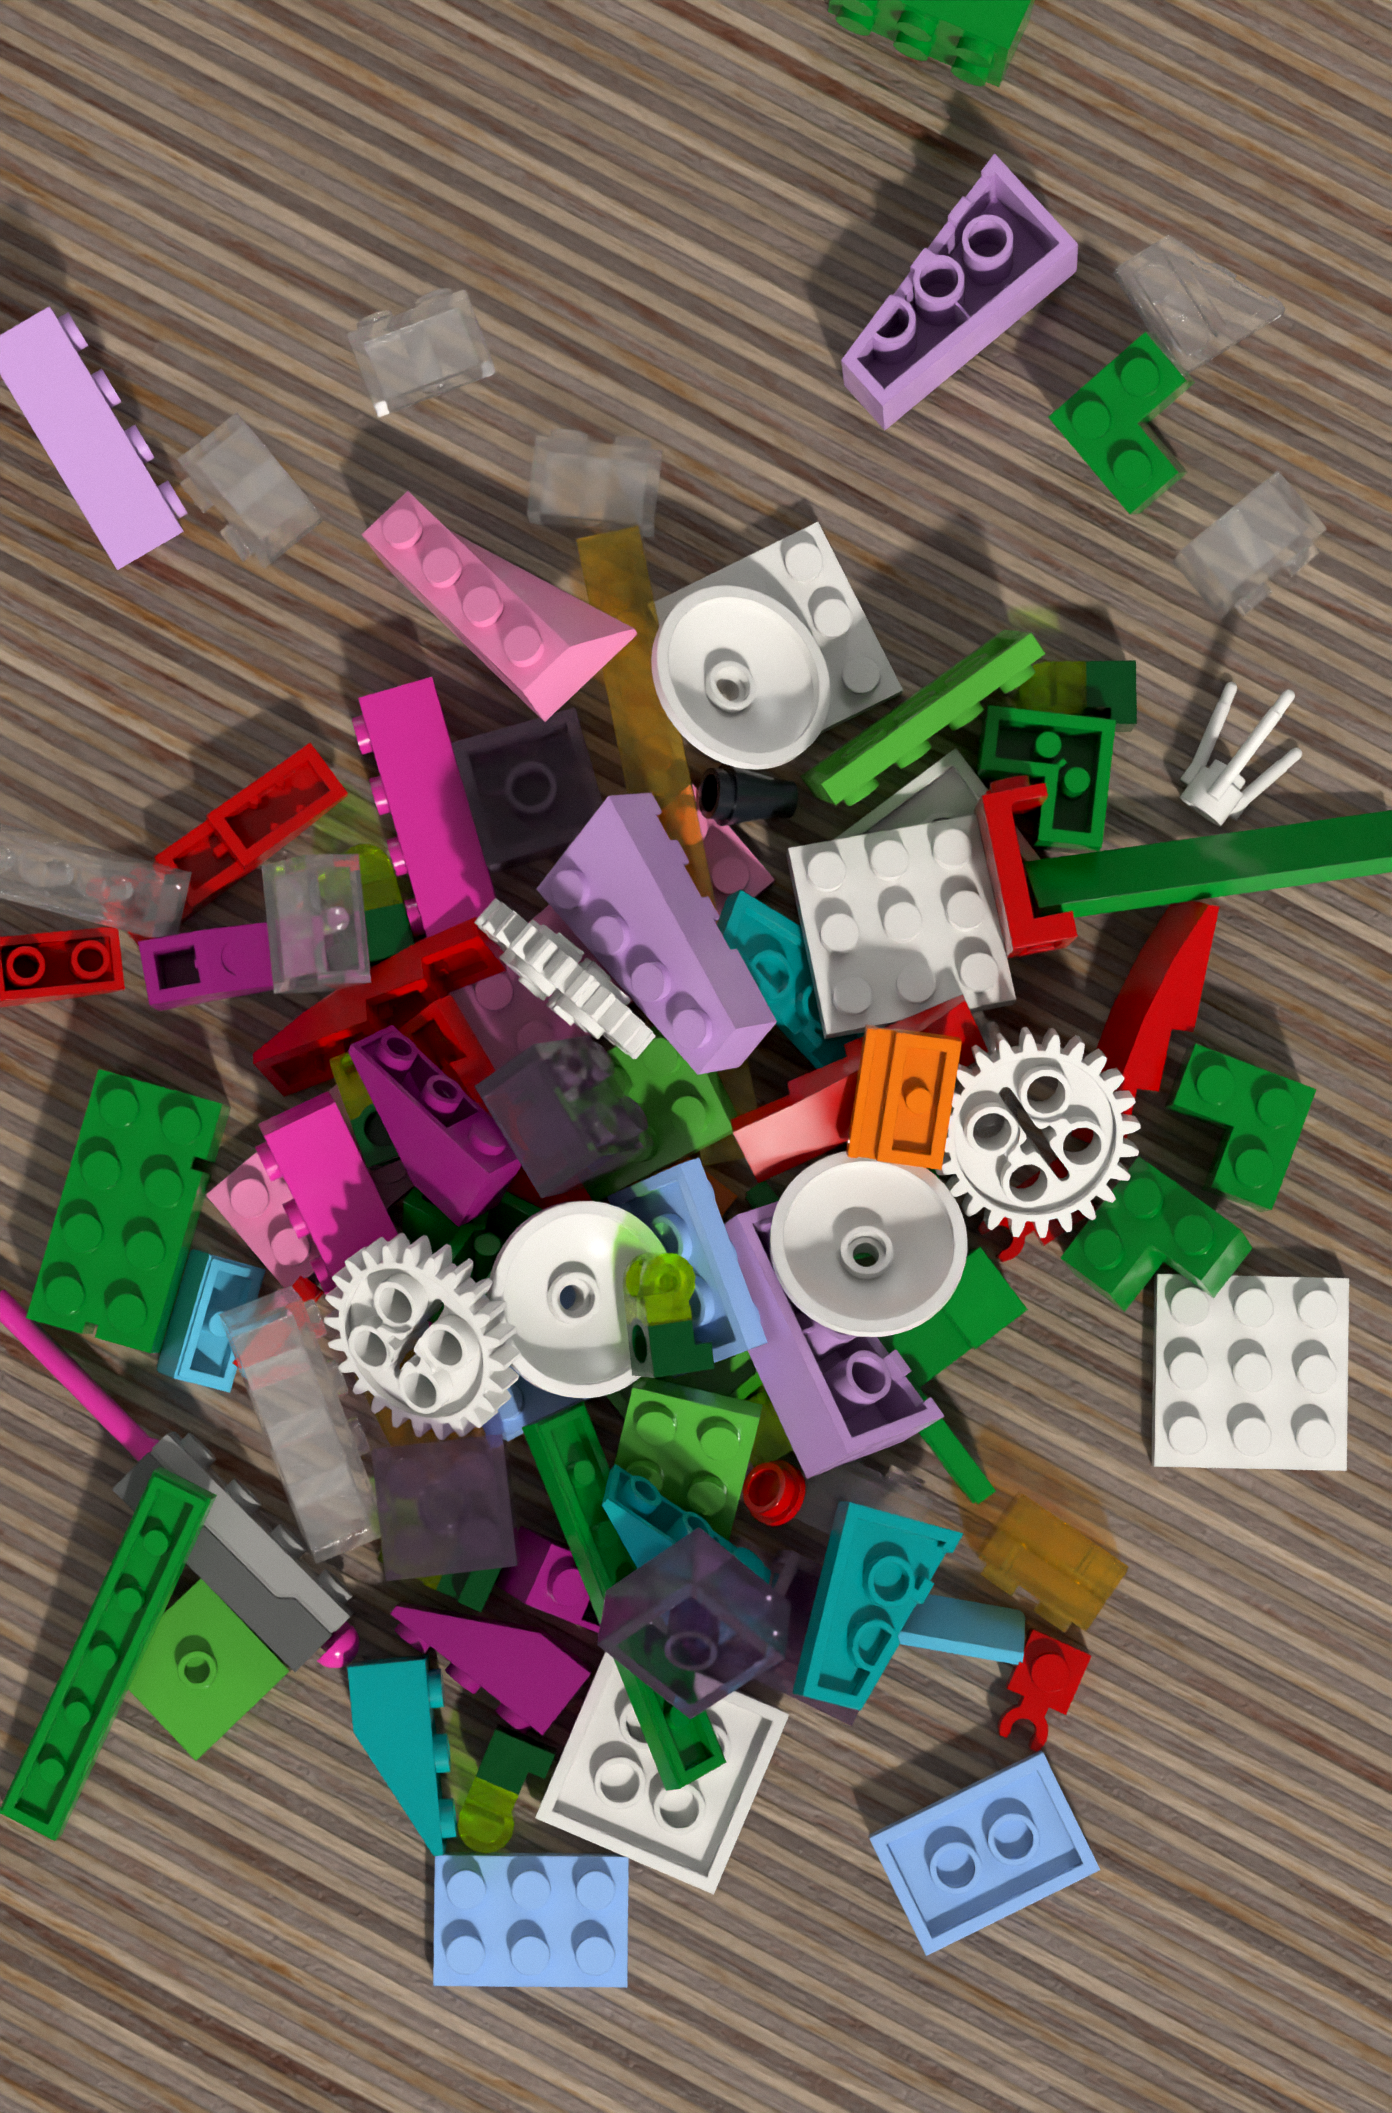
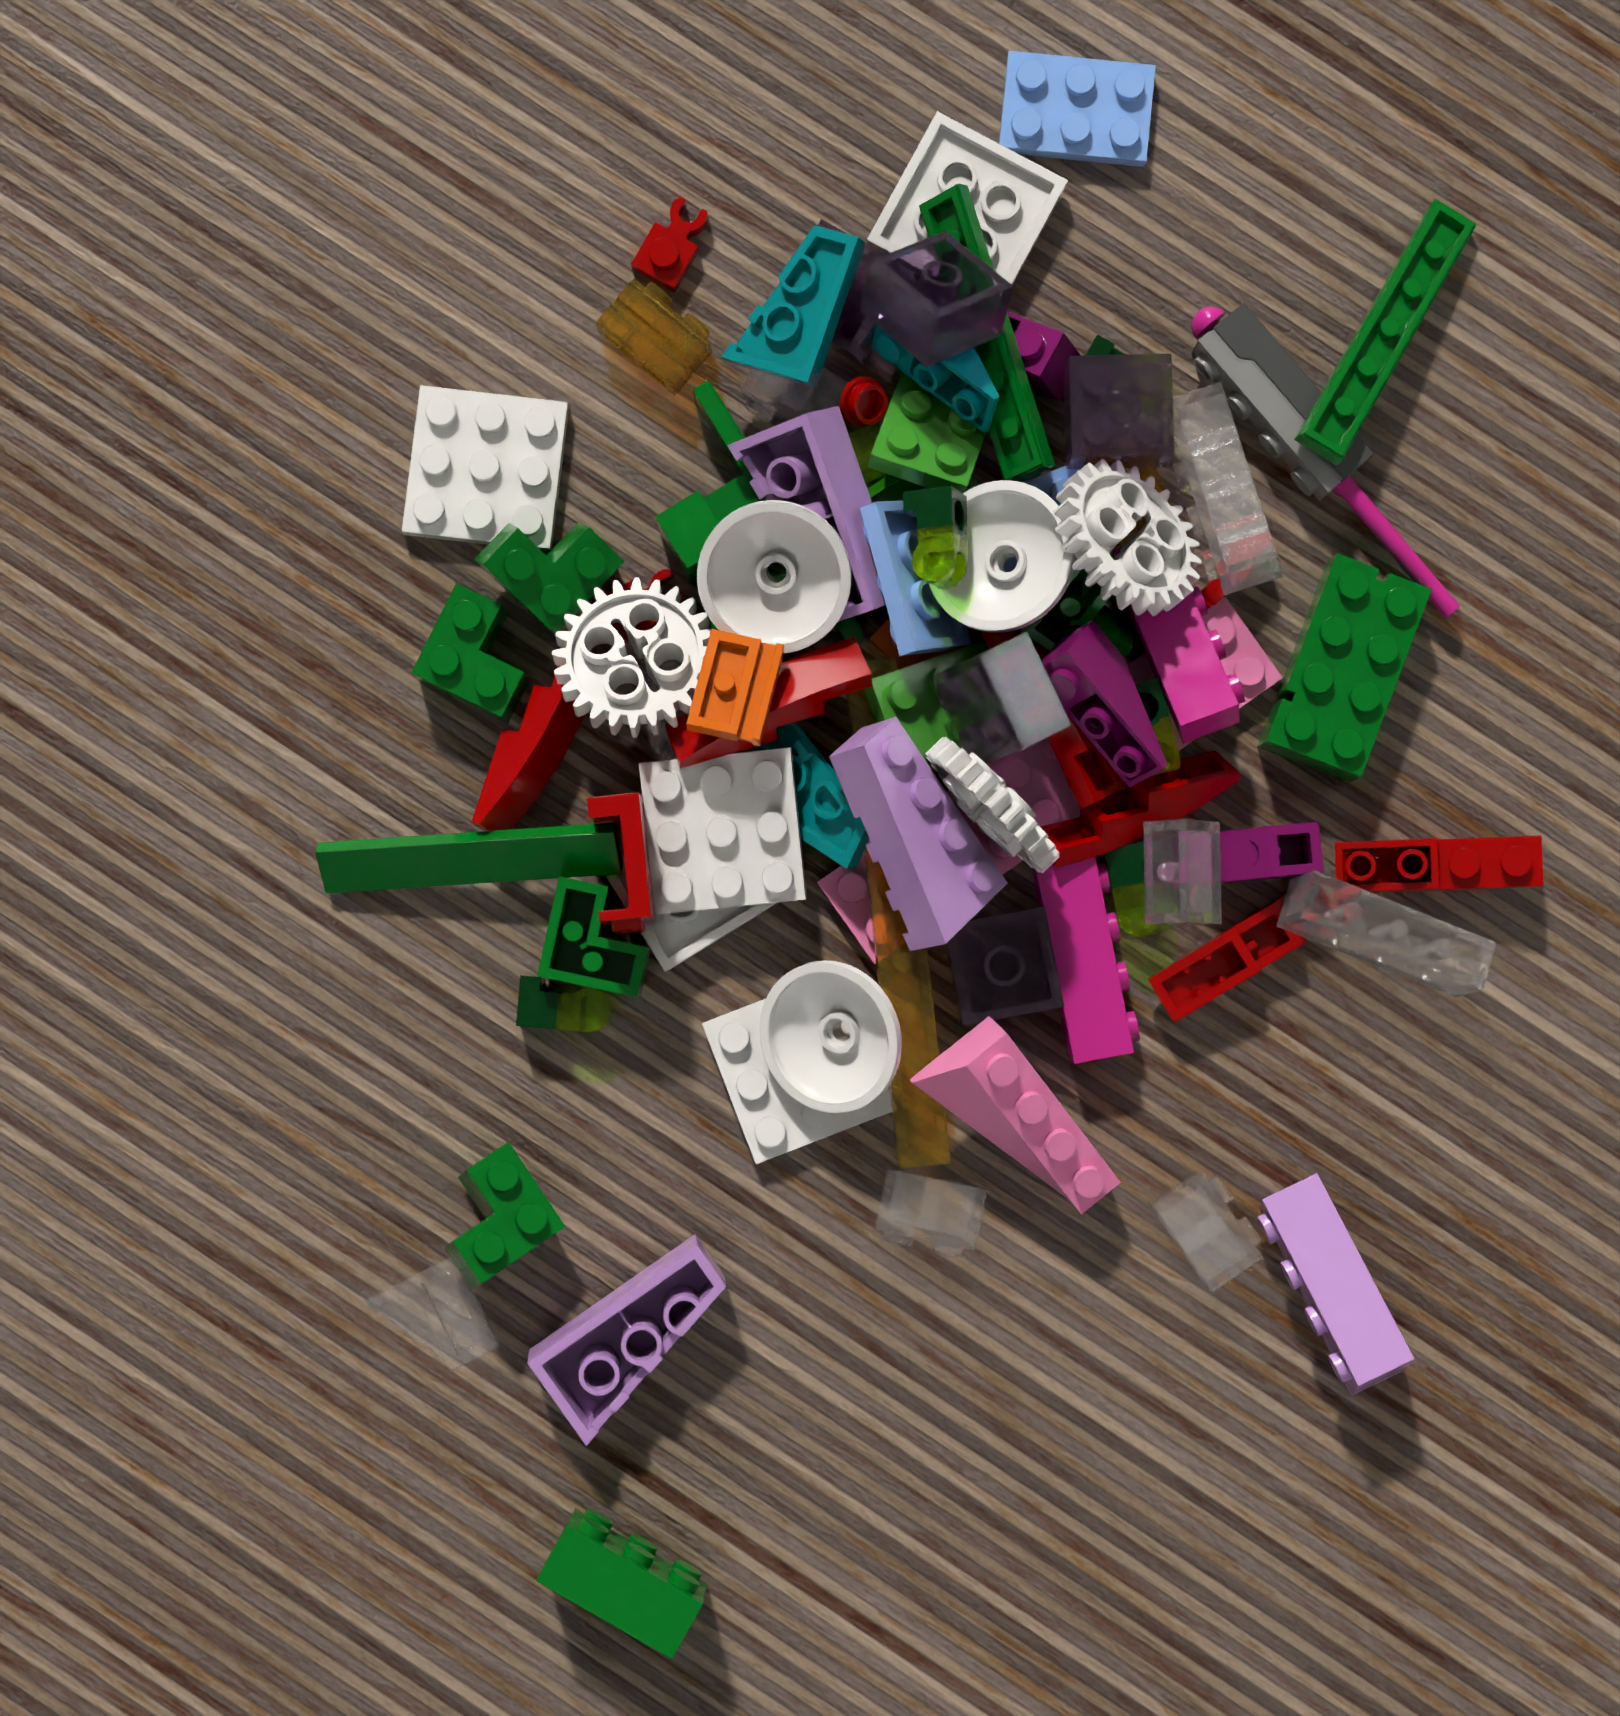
camera: 170 degrees left, 0 degrees up
(195, 1339) = (1284, 602): medium azure slope -> none
(204, 1670) = (1313, 314): bright green plate -> none
(397, 1729) = (1167, 253): teal slope -> none
(420, 351) = (1060, 1332): clear brick -> none
(489, 1809) = (1100, 196): leg -> none
(511, 1661) = (1078, 301): magenta slope -> none
(743, 795) = (836, 944): black cone -> none
(904, 731) = (676, 1003): bright green plate -> none
(966, 1629) = (722, 290): medium azure slope -> none
(983, 1852) = (728, 125): light blue plate -> none
(1216, 789) = (460, 920): white plant -> none
(1250, 546) = (414, 1111): clear brick -> none

